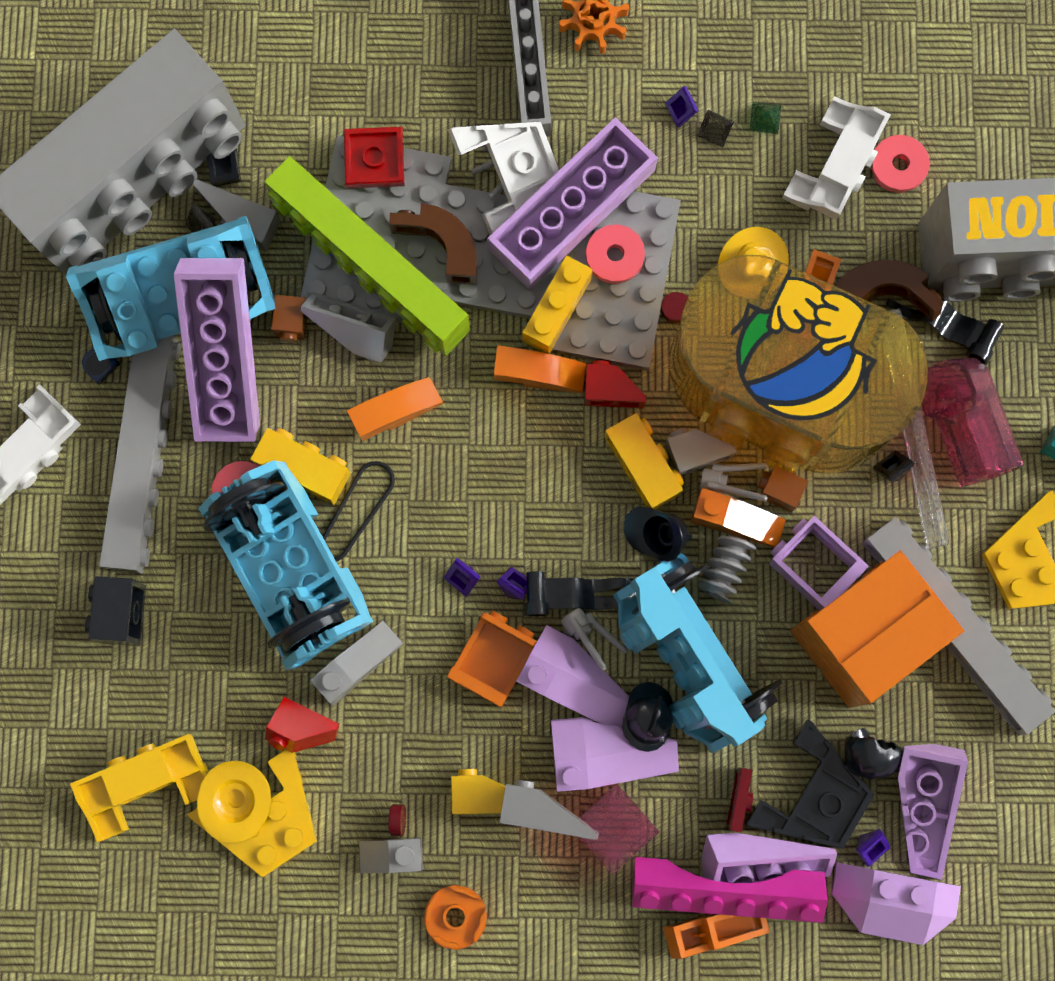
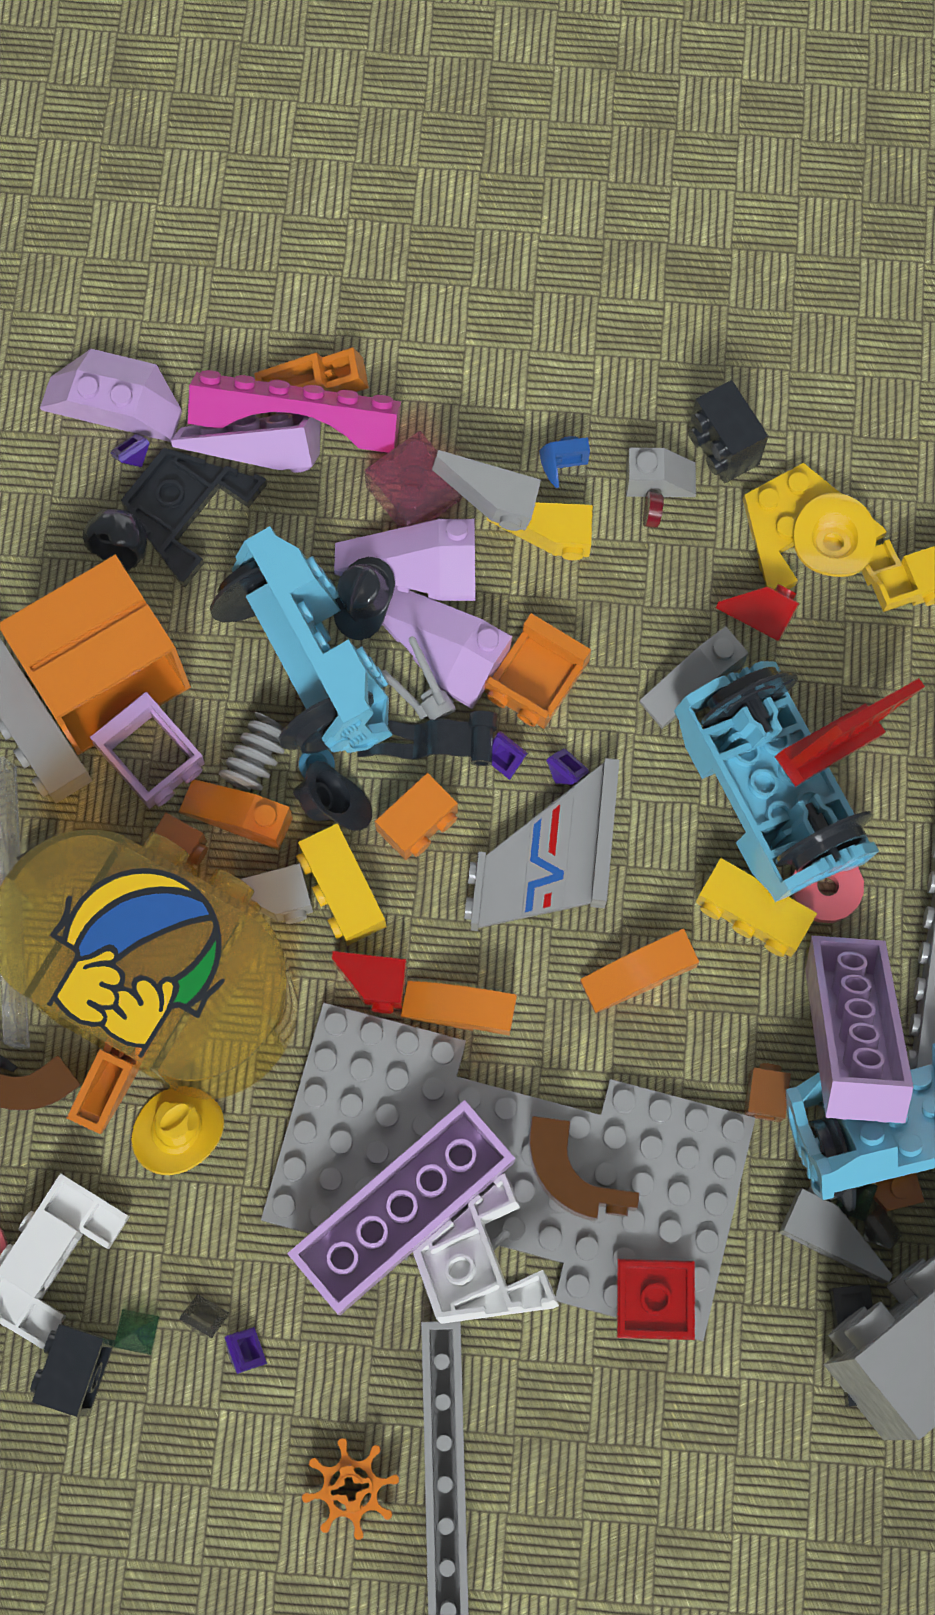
camera: 175 degrees left, 5 degrees down
(225, 606) = (841, 736): none -> red fence
(332, 895) = (727, 432): none -> black brick
(355, 327) = (692, 1075): light grey slope -> none
(367, 256) = (670, 1151): lime brick -> none
(380, 502) = (705, 866): black piece -> none
(455, 936) = (596, 394): orange tile -> none
(469, 495) = (553, 859): none -> light grey piece
(476, 872) = (564, 453): none -> blue plate
(557, 305) = (431, 1076): yellow brick -> none
(585, 523) = (417, 817): none -> orange brick
(615, 237) = (341, 1125): coral tile -> none
(673, 306) = (281, 1079): dark red tile -> none
(715, 481) = (257, 854): light grey plant -> none
(740, 800) = (270, 503): dark red plate -> none
(810, 77) = (71, 1370): none -> black brick
(930, 795) = (59, 491): lavender wedge -> none

